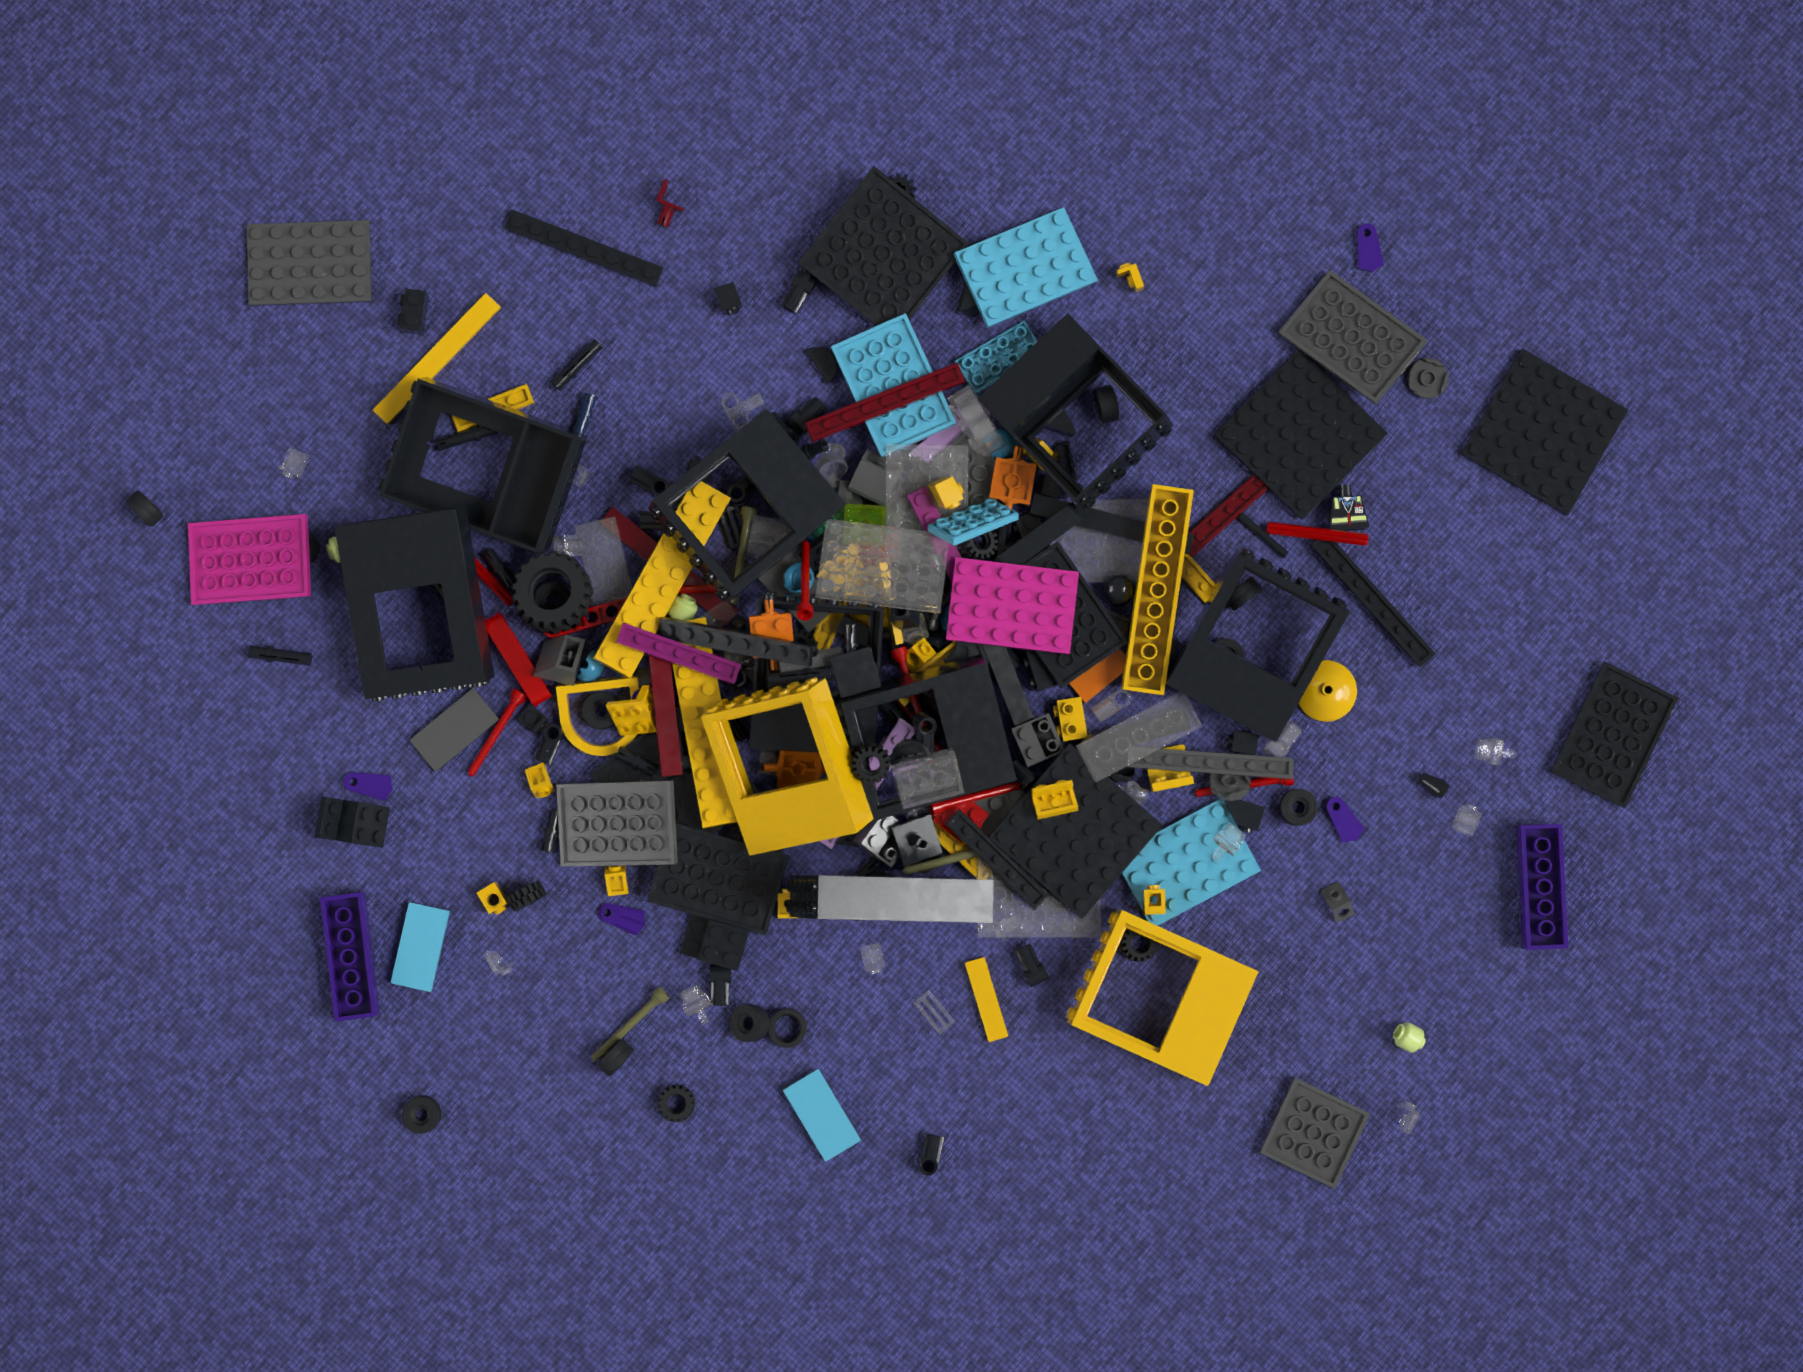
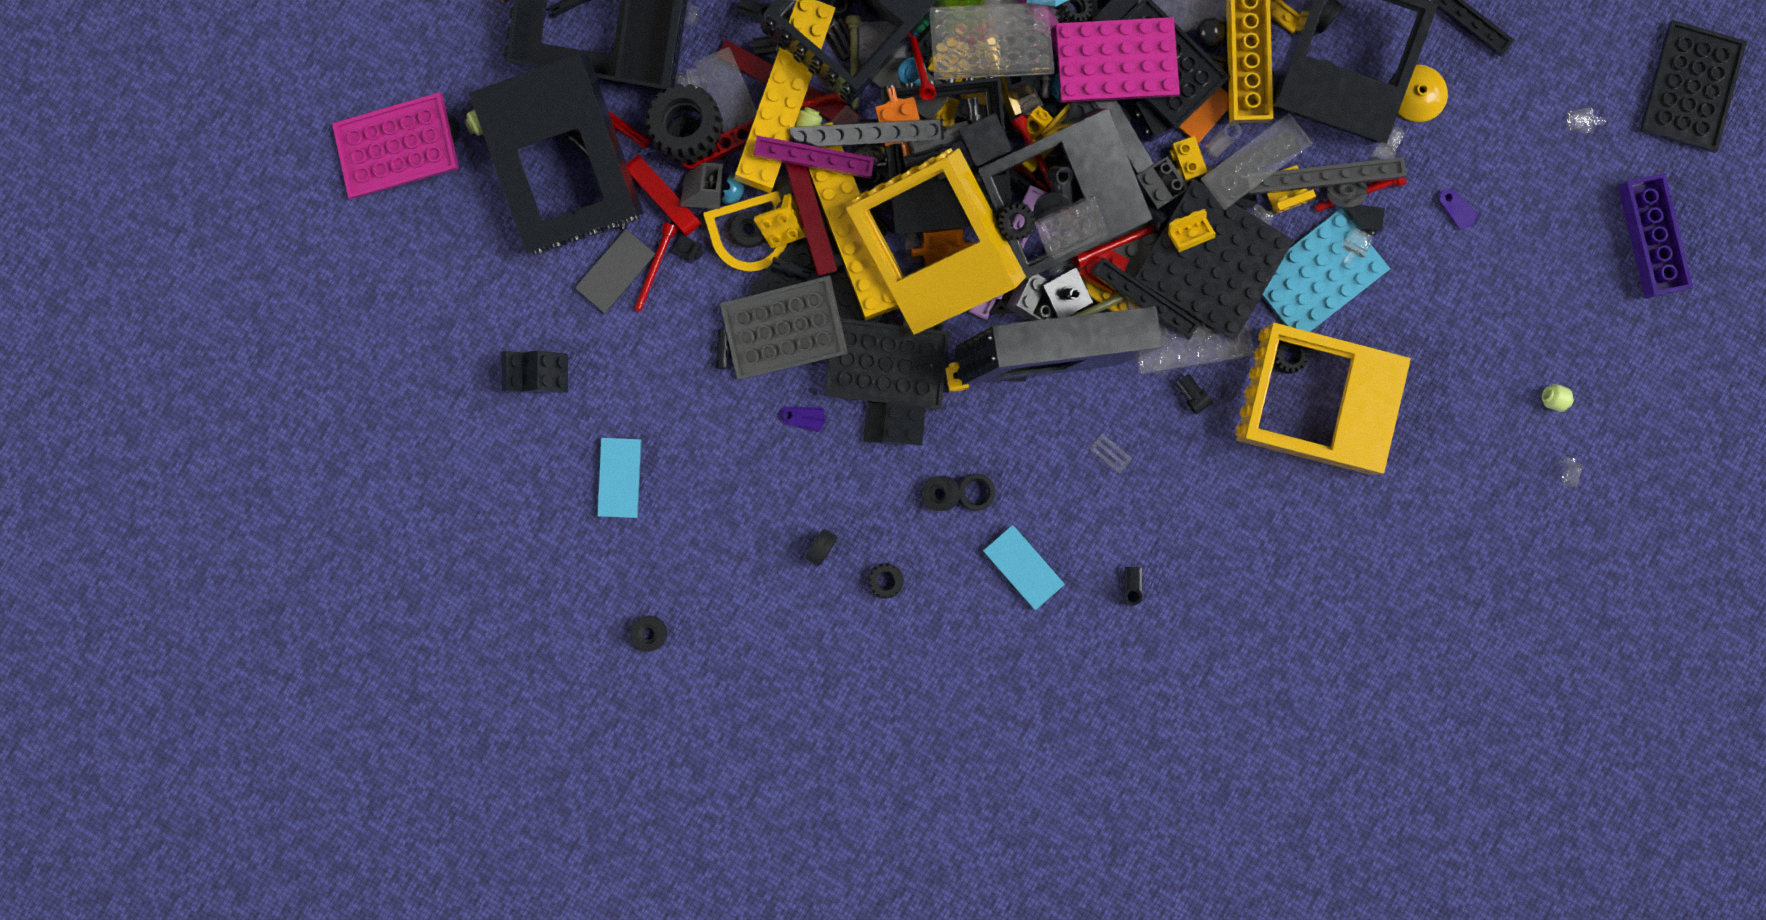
camera: 10 degrees left, 0 degrees up
(144, 508) = (288, 115): black tyre -> none
(271, 654) = (439, 231): black pin -> none
(293, 463) = (421, 52): clear bracket -> none
(350, 956) = (555, 497): dark purple brick -> none
(370, 784) = (545, 336): dark purple piece -> none
(486, 892) = (672, 416): yellow brick -> none
(495, 961) = (691, 477): clear bracket -> none
(499, 568) = (630, 114): black pin -> none
(526, 895) = (710, 411): black tyre -> none
(539, 780) = (703, 304): yellow bracket -> none
(548, 745) = (706, 270): black piece -> none
(616, 880) = (791, 382): yellow bracket -> none
(659, 996) = (850, 485): olive piece -> none
(695, 1001) = (886, 483): clear piece -> none
(720, 980) = (906, 459): black piece -> none
(872, 958) = (1044, 413): clear bracket -> none
(986, 999) = (1157, 433): yellow tile -> none
(1157, 908) = (1305, 313): yellow brick -> none
(1243, 742) = (1352, 152): black brick -> none
(1286, 807) = (1424, 199): black tyre -> none
(1314, 1133) = (1486, 502): dark grey plate -> none
(1337, 901) = (1467, 283): dark grey bracket -> none
(1434, 785) = (1537, 162): black cone -> none
(1466, 820) = (1572, 188): clear brick -> none

